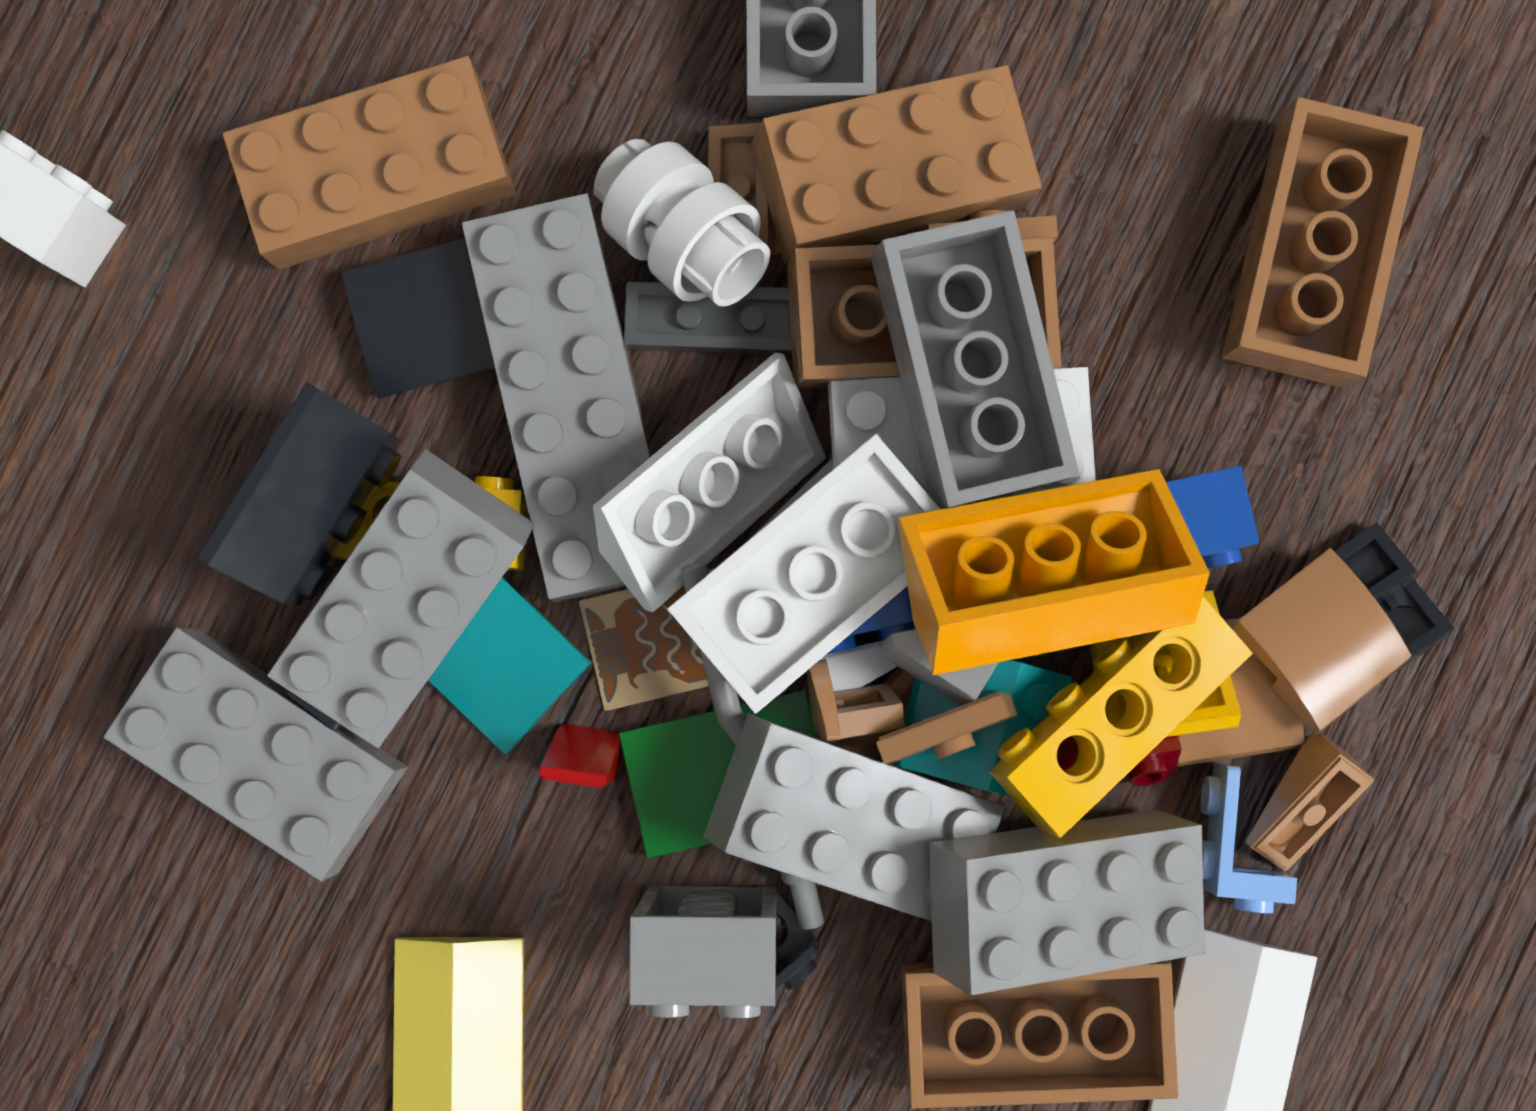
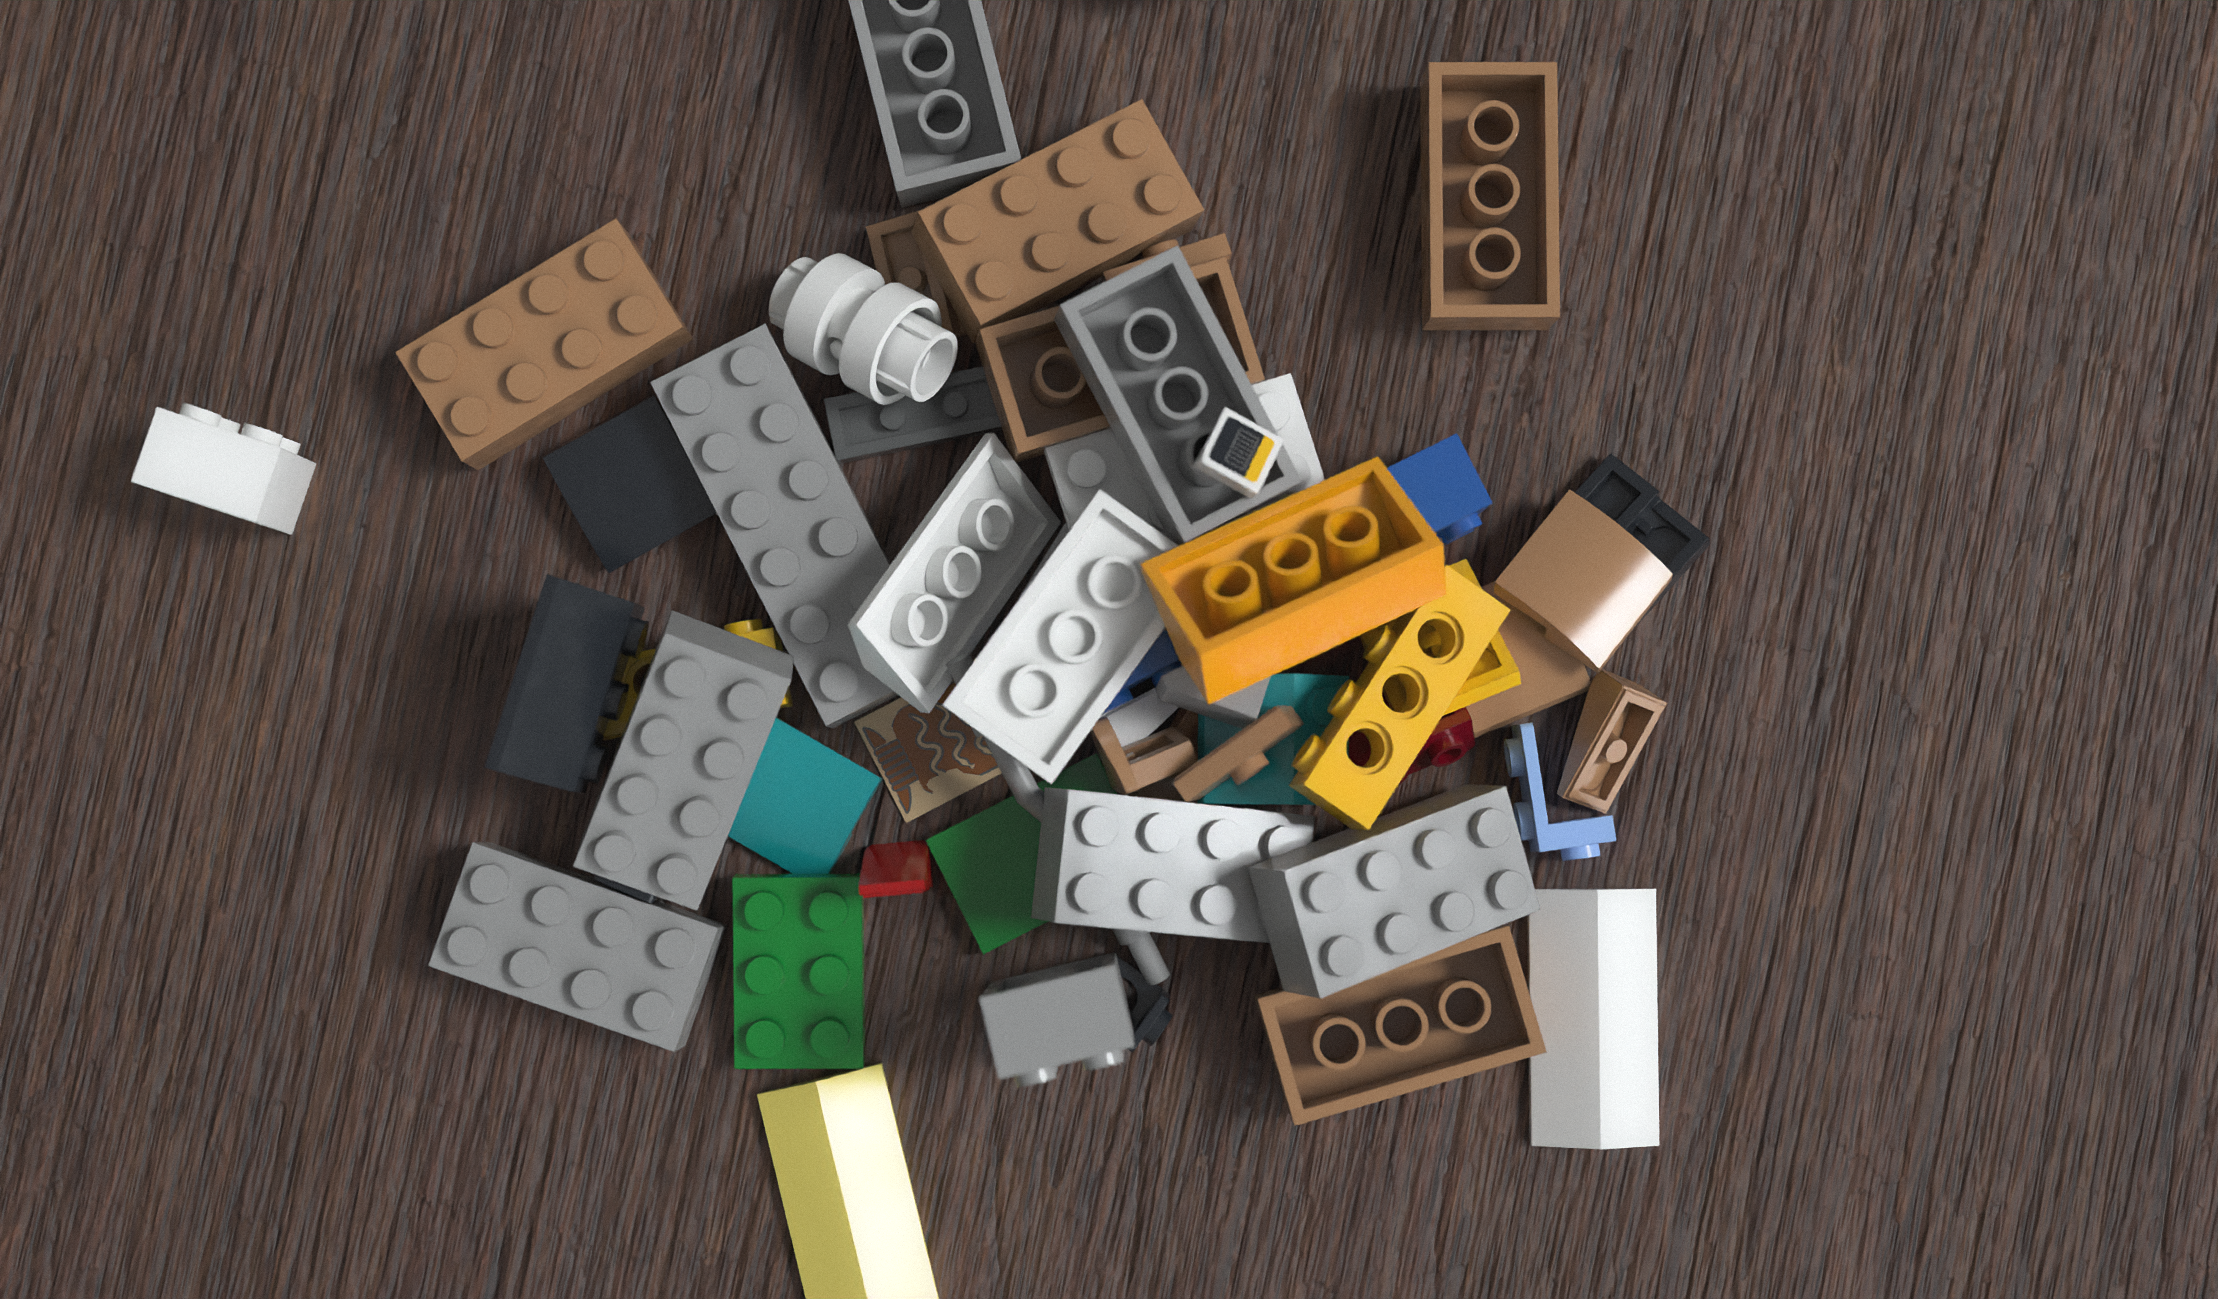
camera: 15 degrees left, 0 degrees up
(464, 830) = (798, 971): none -> green plate
(1024, 432) = (1238, 453): none -> slope

